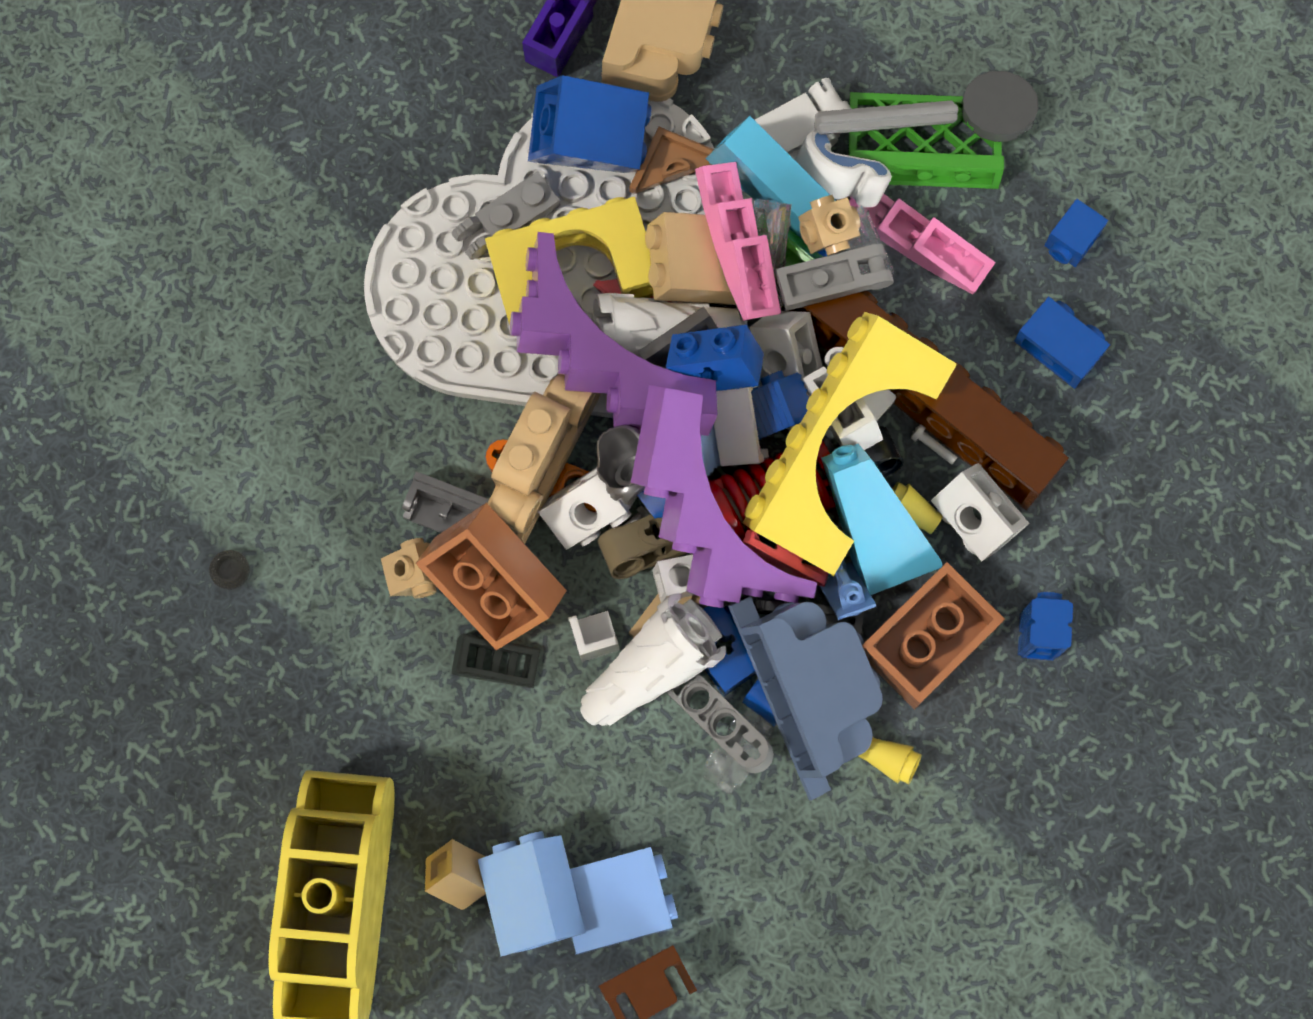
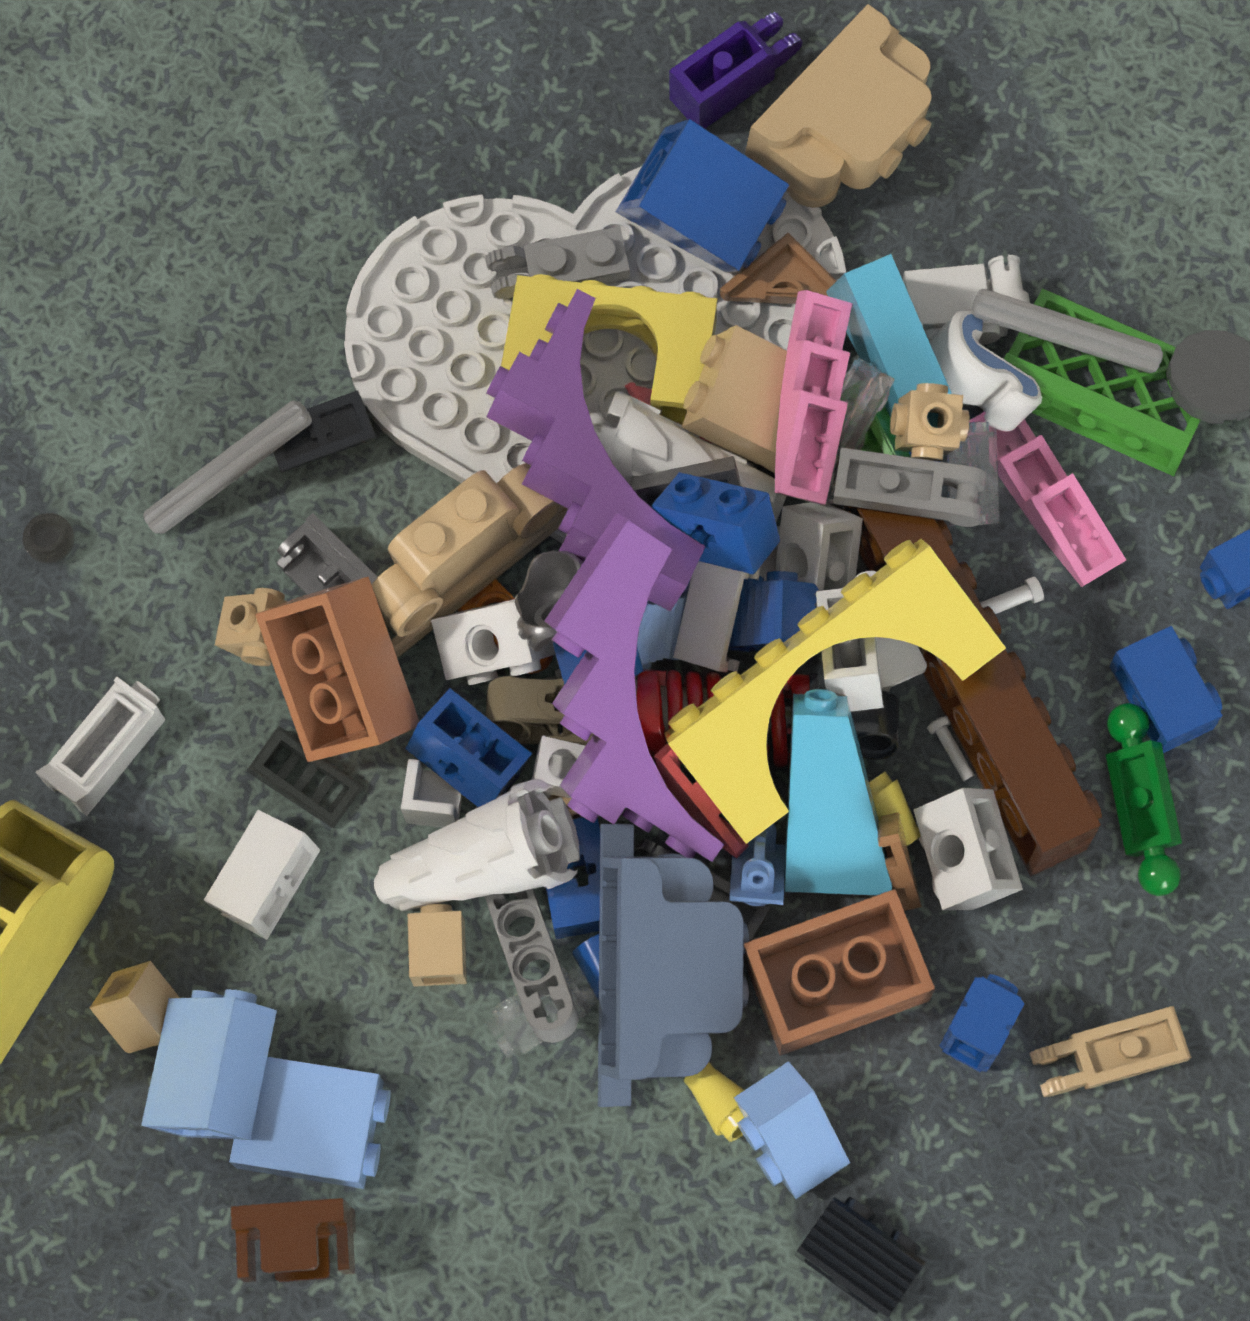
camera: 25 degrees right, 5 degrees down
(338, 464) = (227, 467): none -> light grey axle
(343, 700) = (104, 744): none -> white window
(391, 410) = (333, 428): none -> black hinge
(499, 742) = (262, 874): none -> white hinge
(608, 593) = (467, 749): none -> blue brick
(646, 739) = (437, 946): none -> tan brick
(936, 538) = (898, 861): none -> medium nougat tile
(938, 312) = (1029, 591): none -> white piece
(950, 759) = (791, 1131): none -> light blue brick
(1032, 822) = (861, 1257): none -> black brick
(1080, 424) = (1143, 799): none -> green plate
(1139, 605) = (1116, 1051): none -> tan hinge

